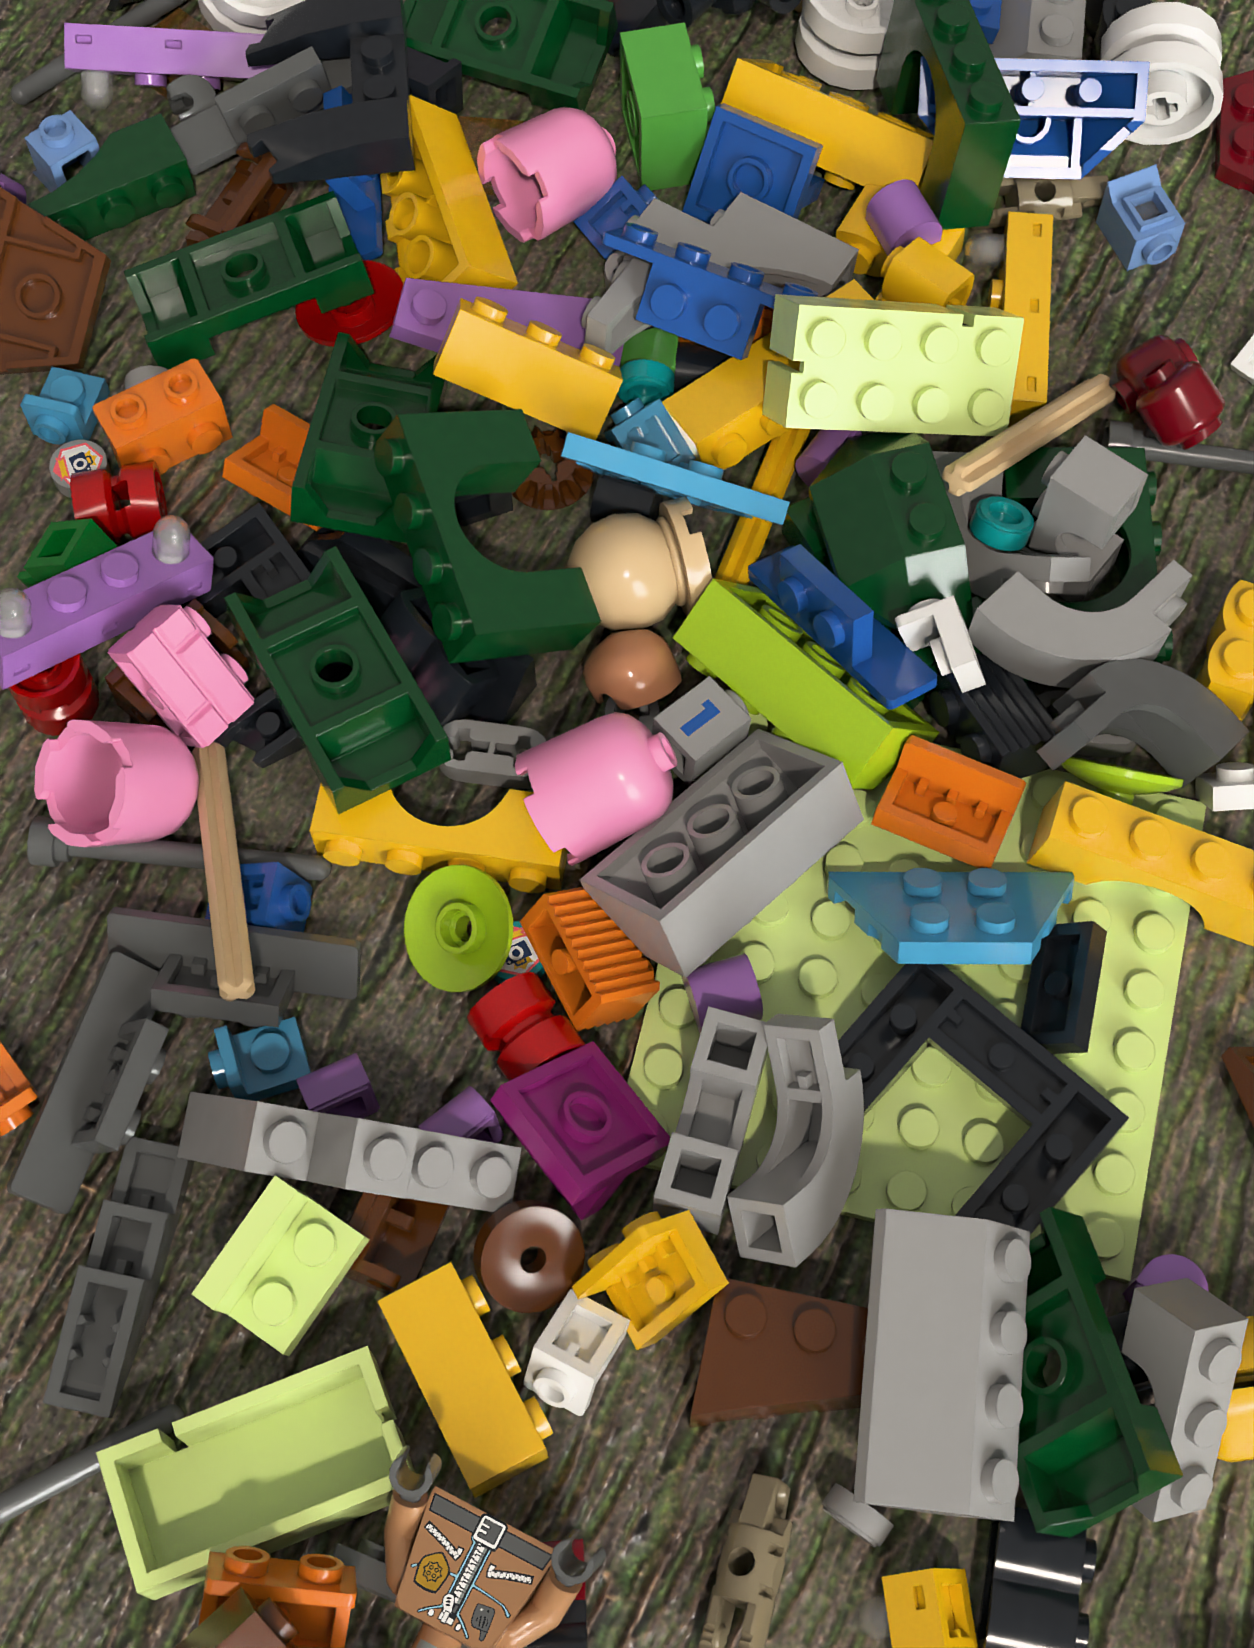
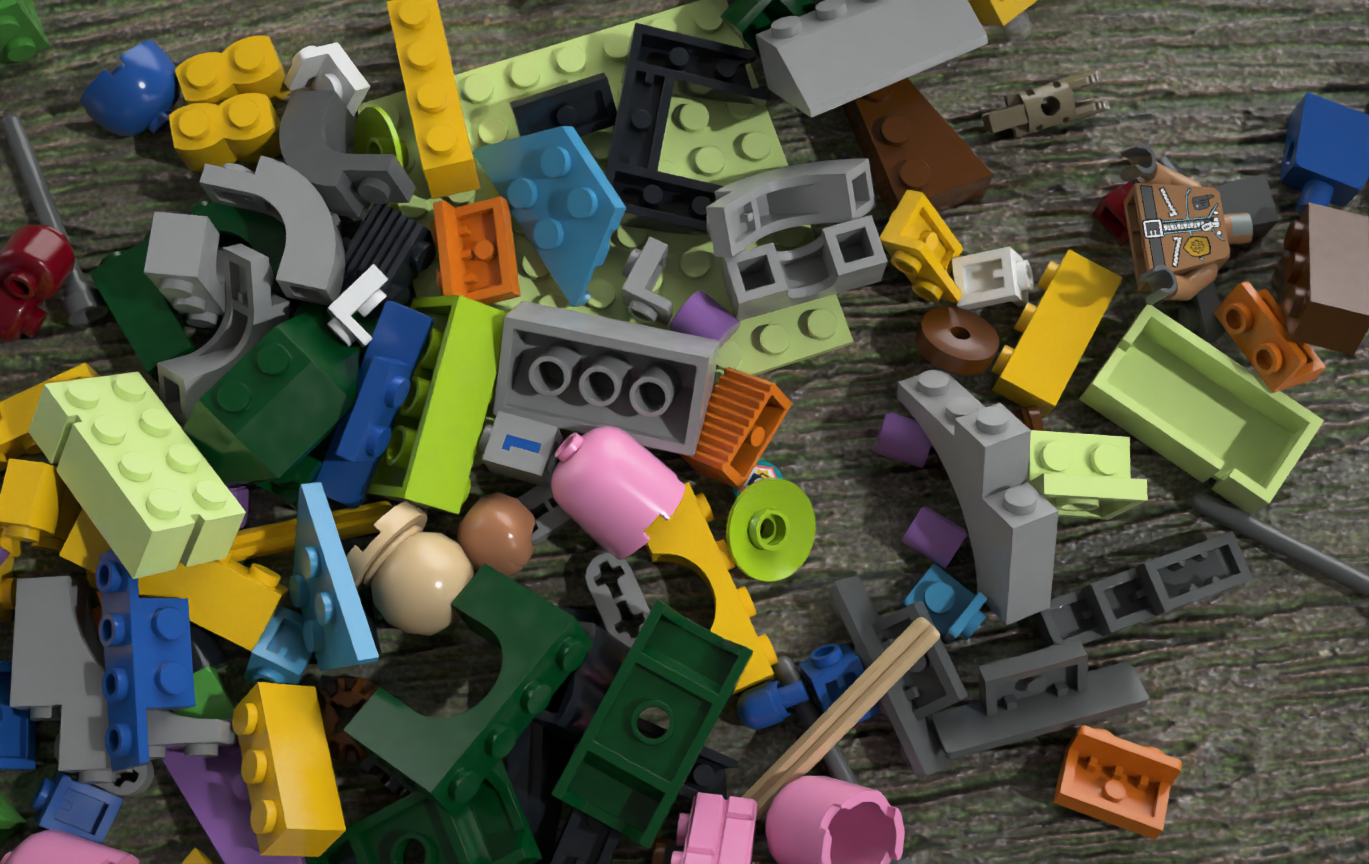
camera: 125 degrees left, 10 degrees up
(289, 825) = (769, 703): none -> blue cylinder
(521, 1026) = (813, 439): red wheel -> none
(581, 1126) = (858, 353): magenta bracket -> none
(646, 380) = (230, 682): teal tile -> none
(820, 960) = (642, 274): none -> light grey bracket
(856, 1517) = (974, 68): light grey tile -> none
(1001, 523) = (226, 327): teal tile -> none
(1027, 435) = (130, 352): tan axle -> none

